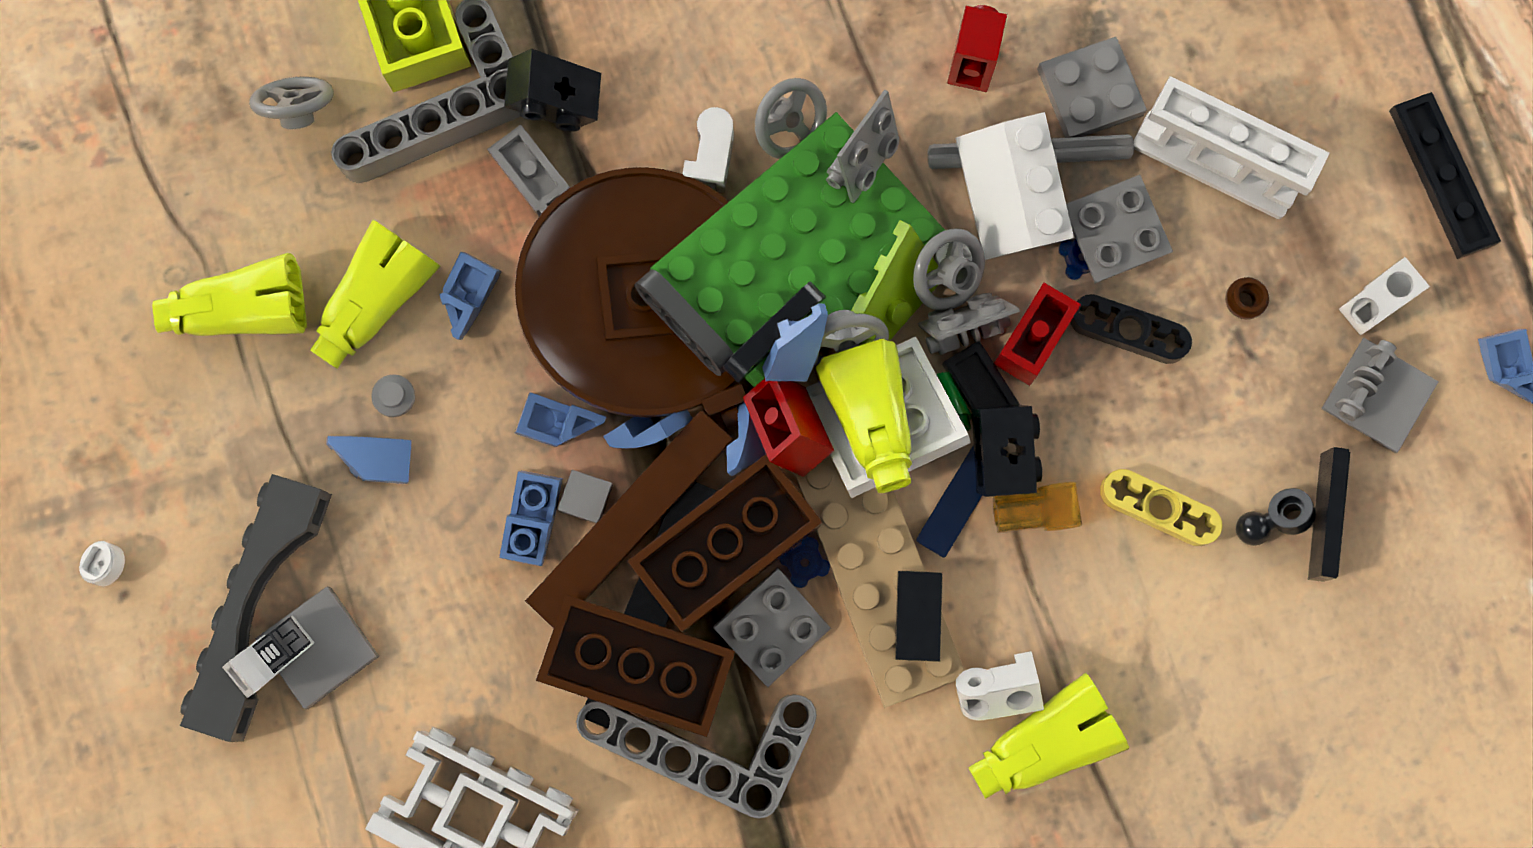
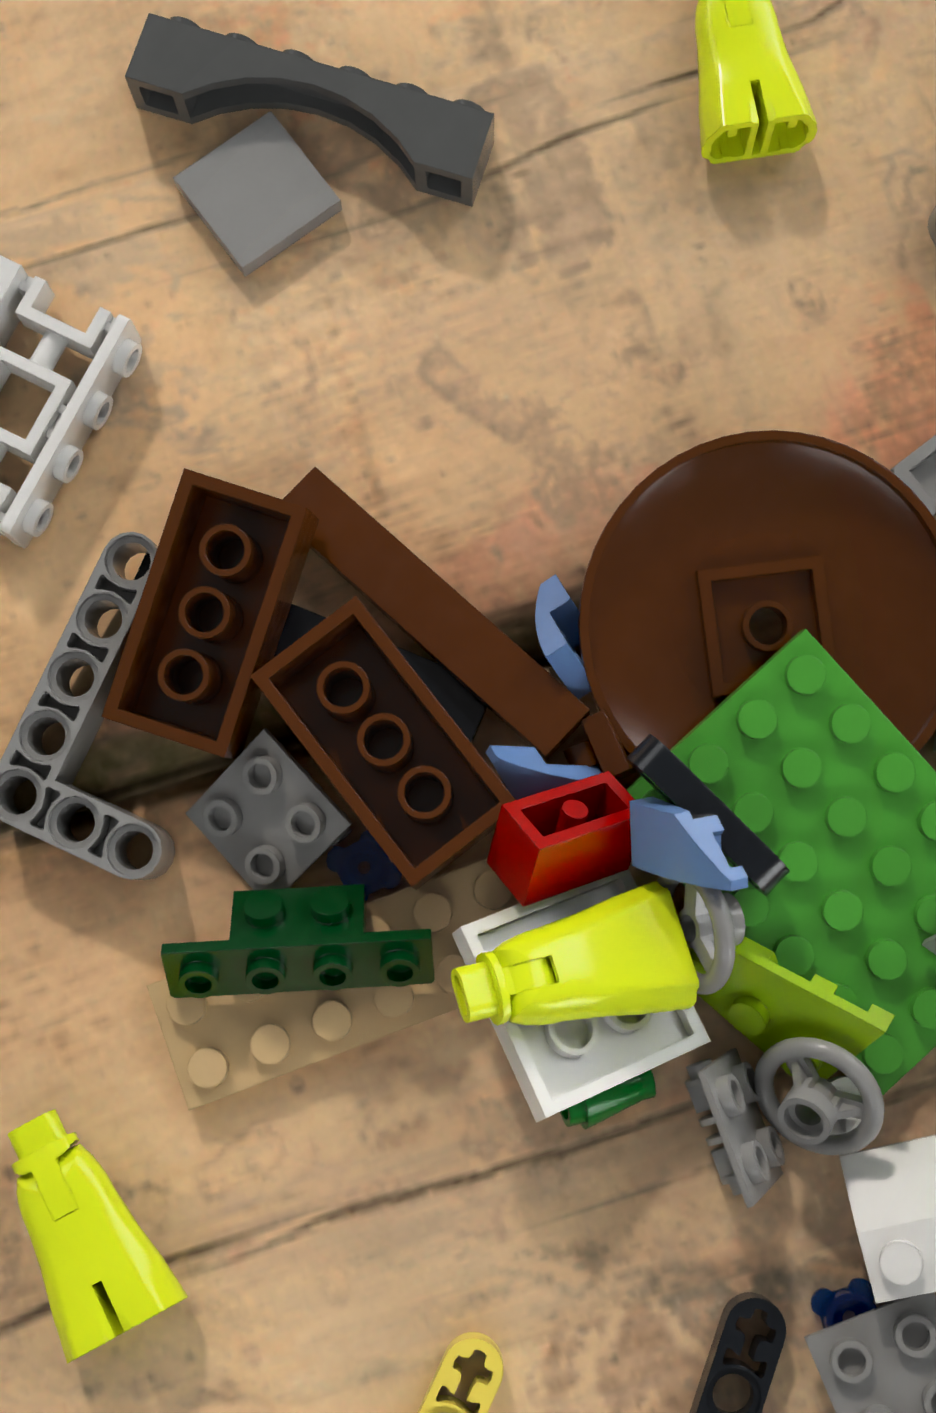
camera: 90 degrees right, 0 degrees up
(268, 656) = (238, 118): leg -> none
(373, 288) = (775, 250): neon yellow piece -> none
(374, 458) = (521, 257): medium blue slope -> none
(393, 395) = (611, 279): light grey plate -> none
(467, 291) = (767, 377): medium blue slope -> none
(531, 518) = (435, 475): medium blue slope -> none
(553, 421) = (576, 503): medium blue slope -> none
(585, 497) = (465, 549): light grey tile -> none
(684, 321) = (724, 679): dark grey beam -> none
(856, 601) = (298, 944): none -> dark green bracket
(918, 616) = (275, 1037): black tile -> none
(952, 509) = (464, 1110): dark blue sticker -> none
(979, 378) = (633, 1148): black tile -> none
(994, 430) = (561, 1159): black brick -> none
(1000, 690) = (163, 1162): white leg -> none
(1037, 334) = (718, 1238): red brick -> none
(1050, 508) = (441, 1245): clear yellow piece -> none

